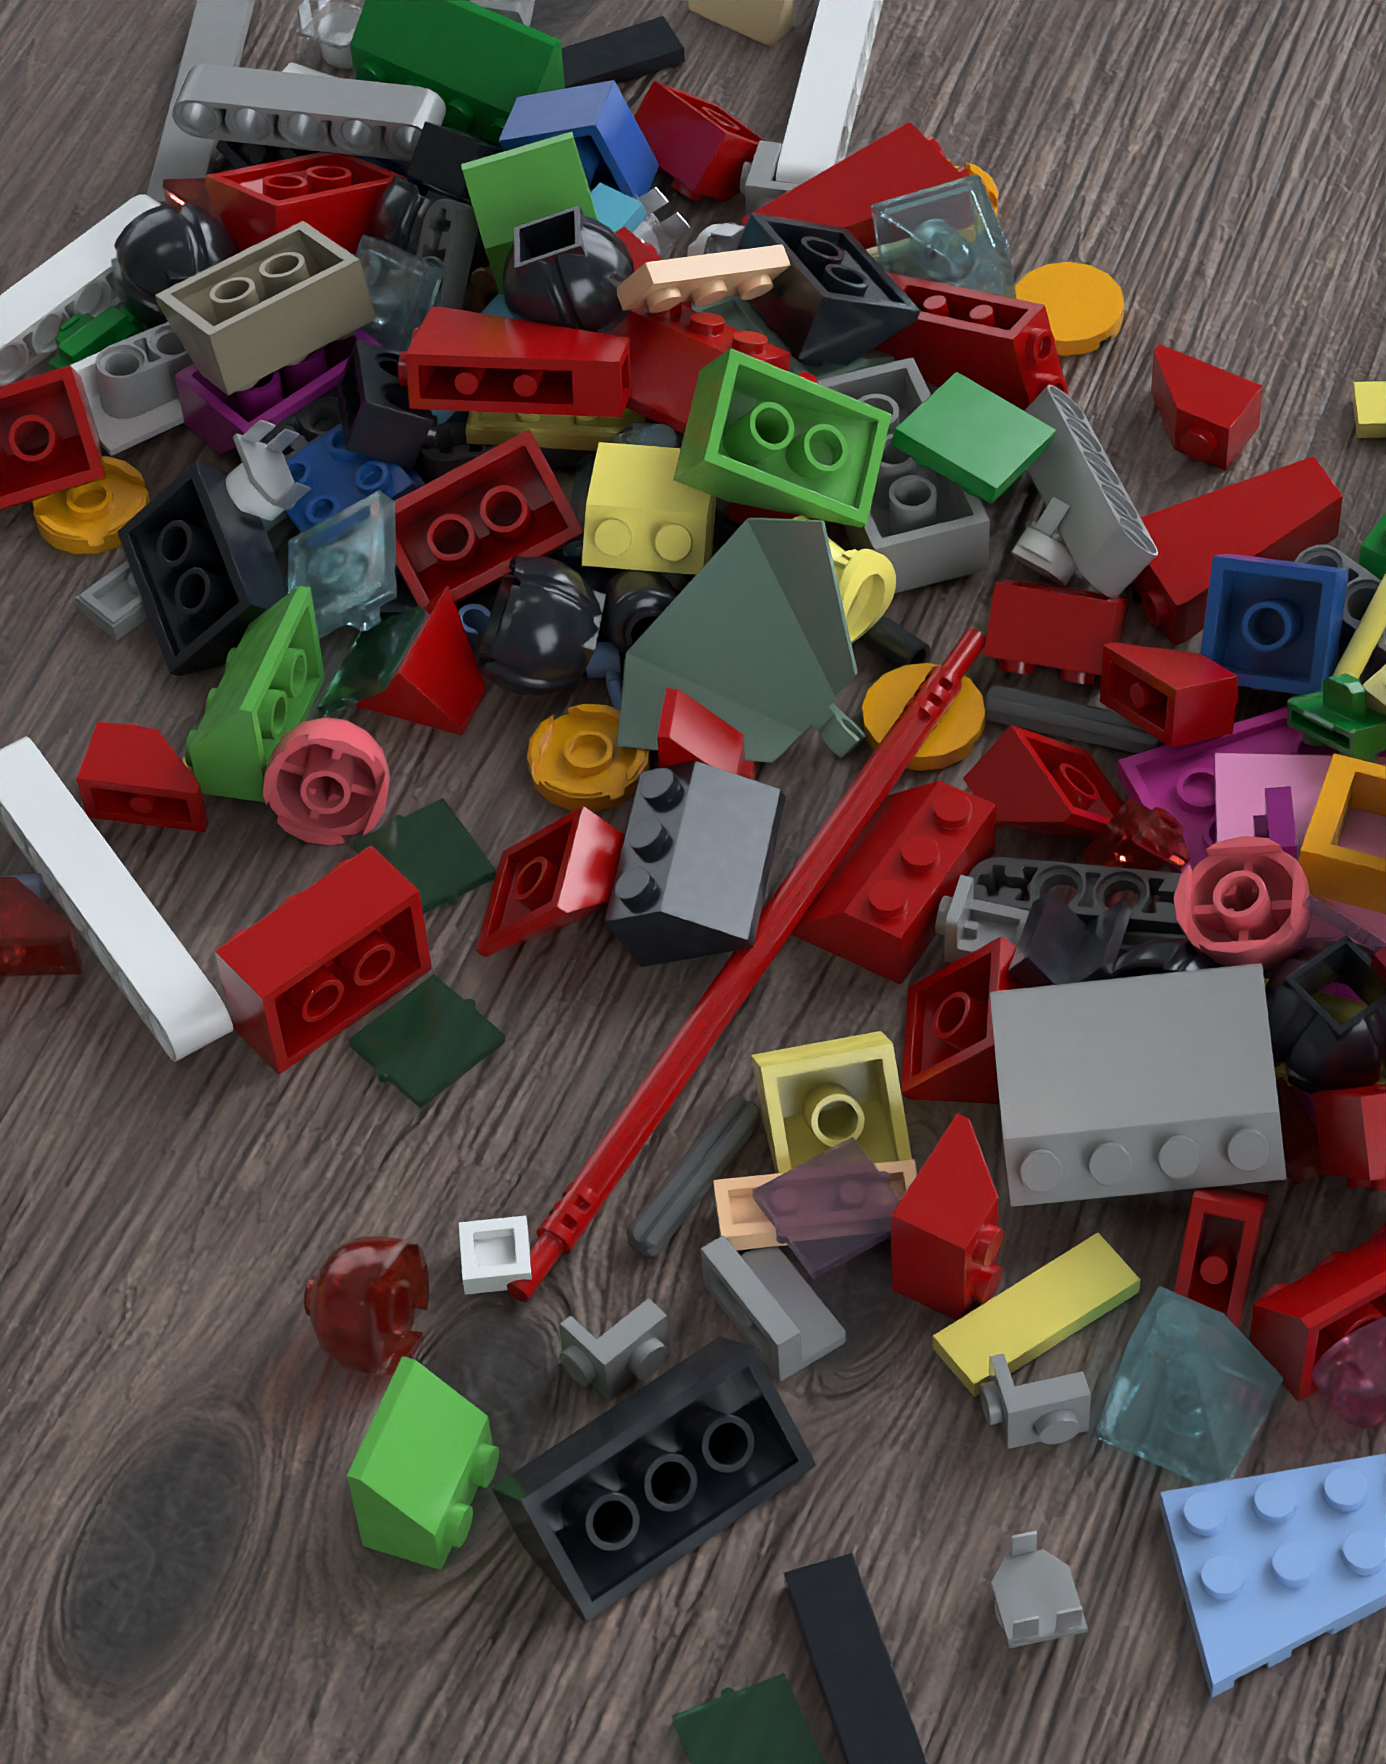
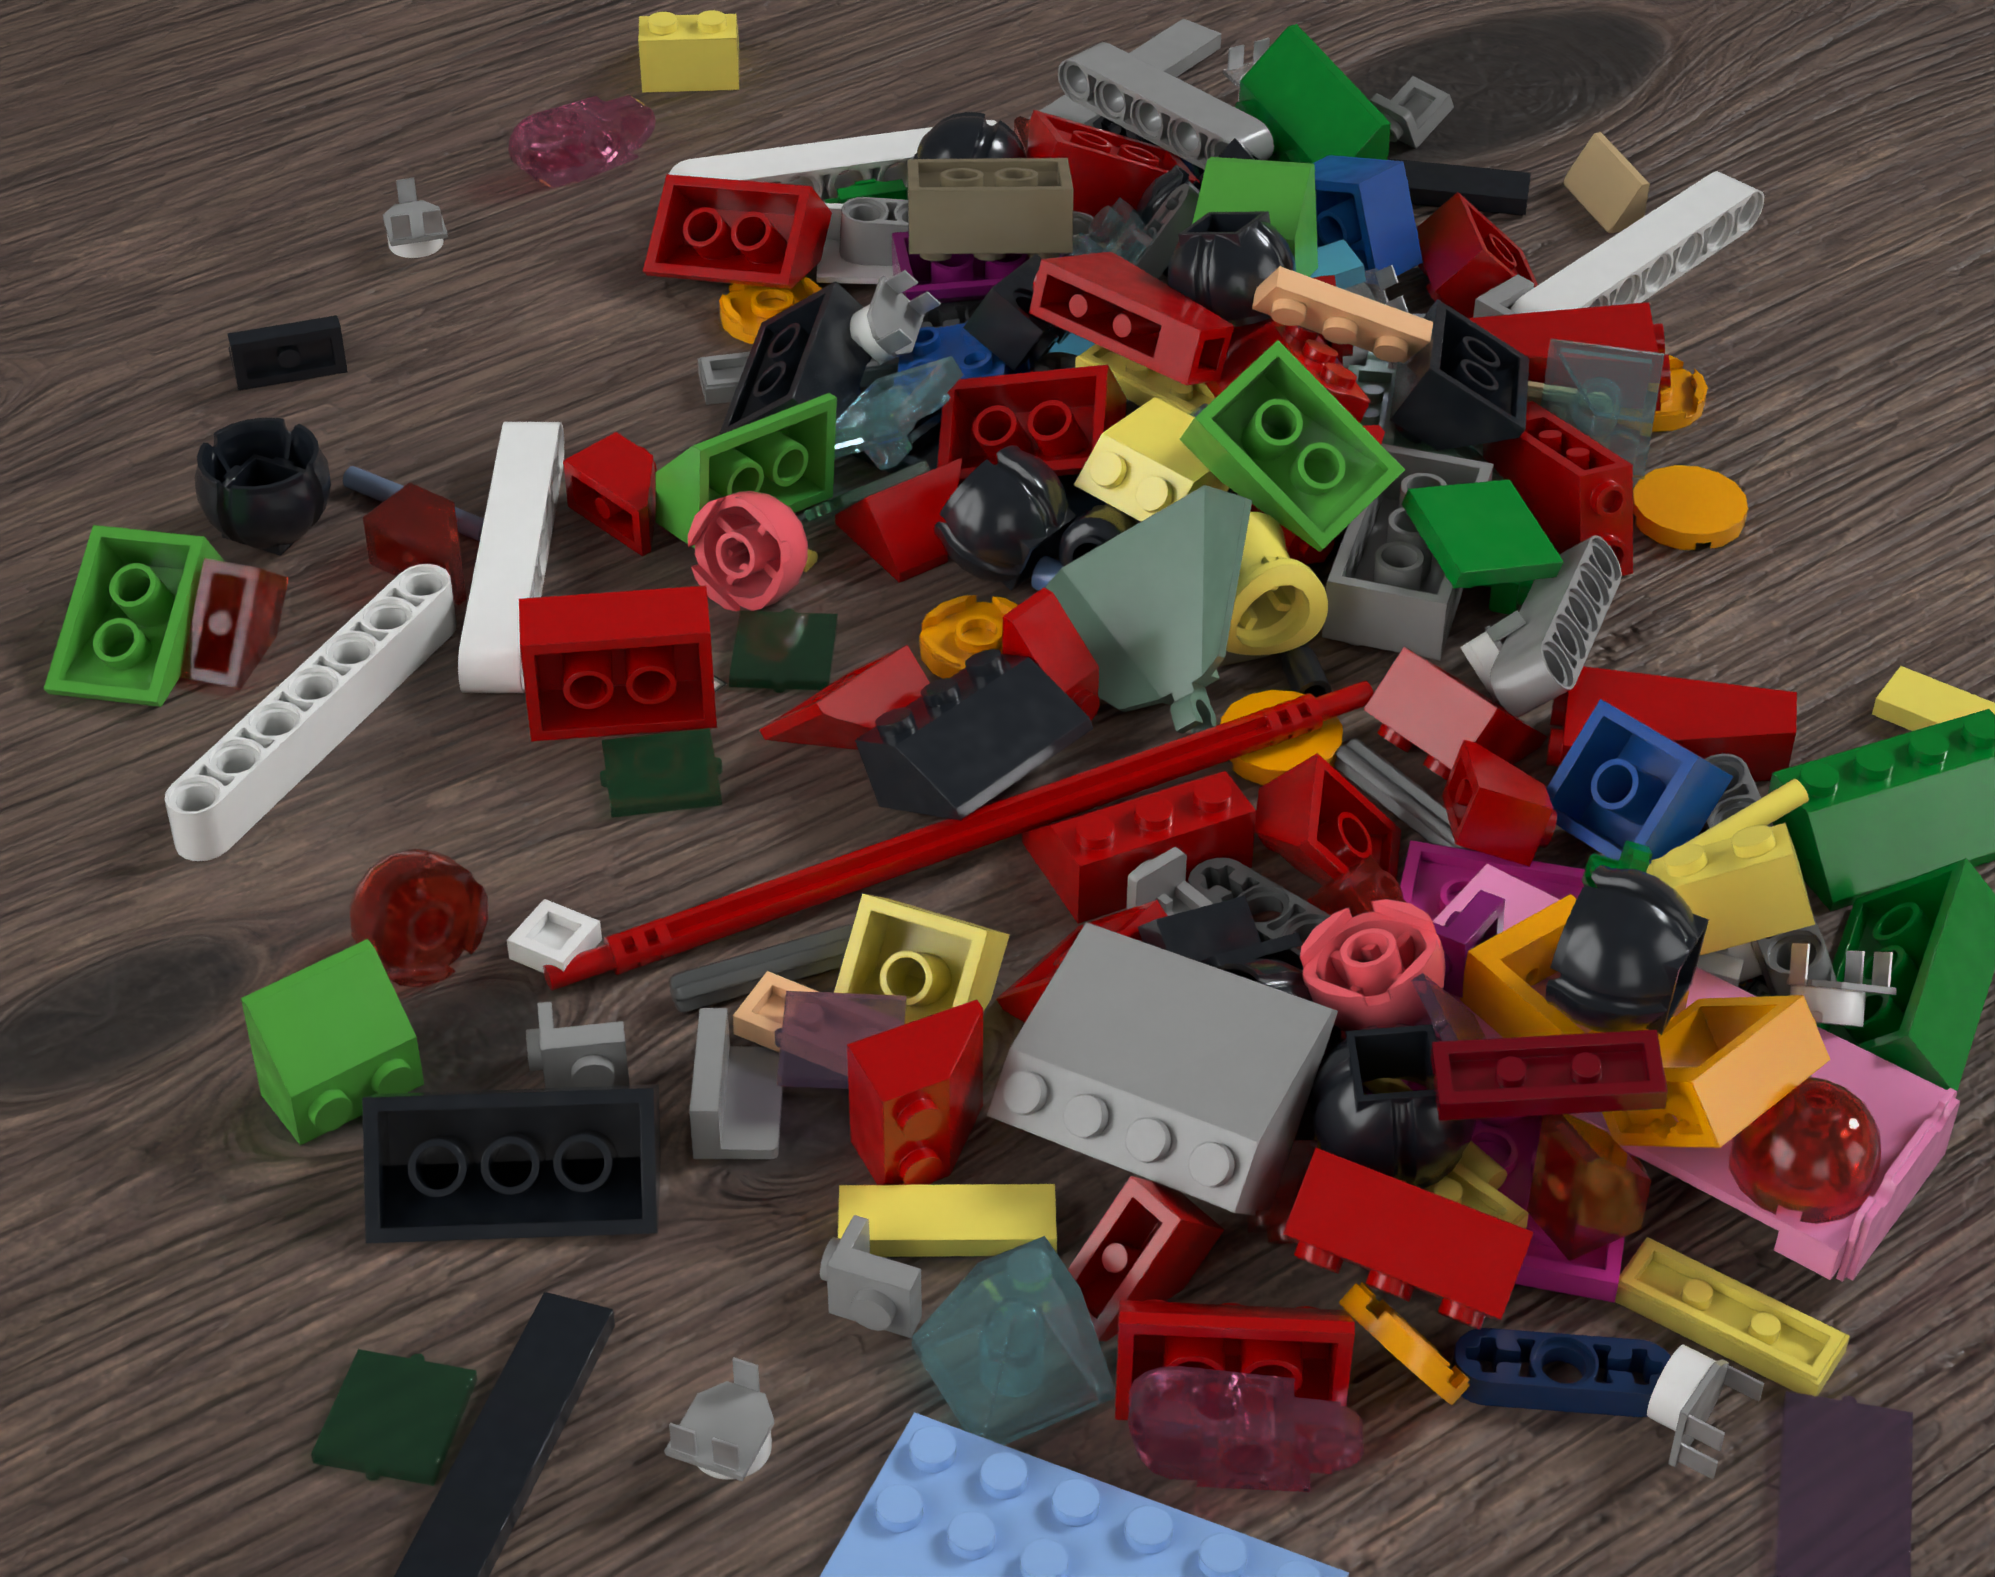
camera: 30 degrees right, 10 degrees down
(67, 1121) = (310, 713): none -> white beam
(1204, 407) = (1742, 626): red slope -> none

